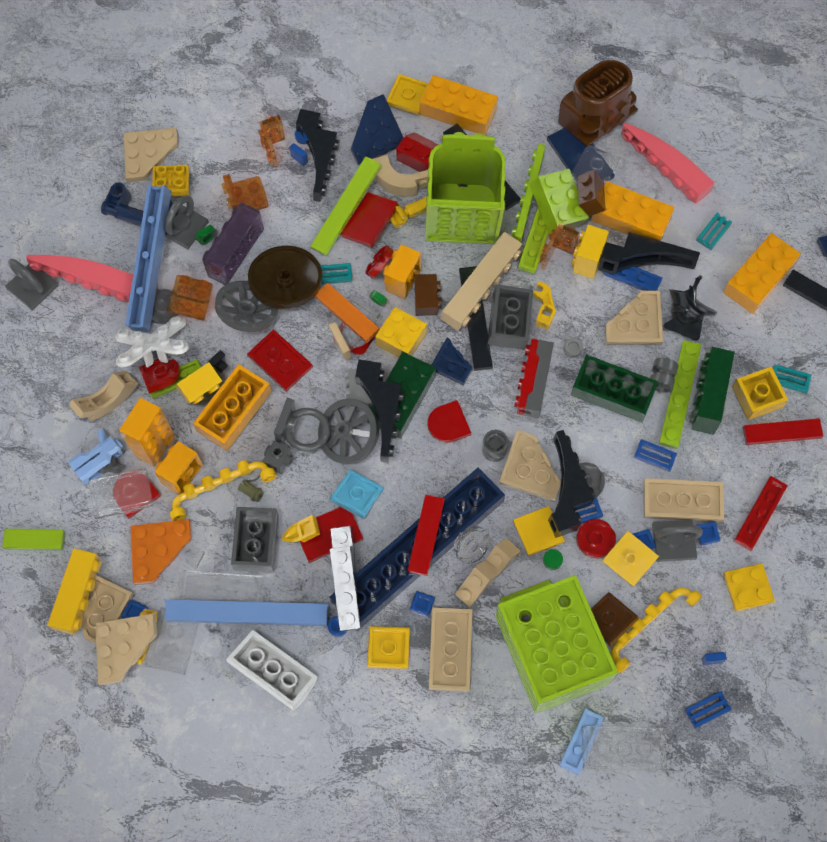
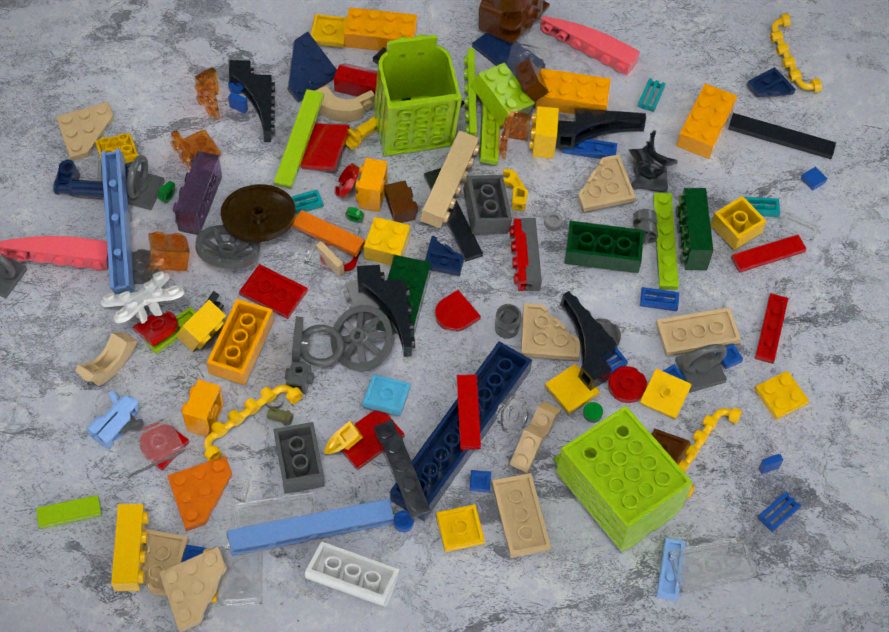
camera: 20 degrees left, 10 degrees down
(147, 432) = (165, 378): light orange brick -> none

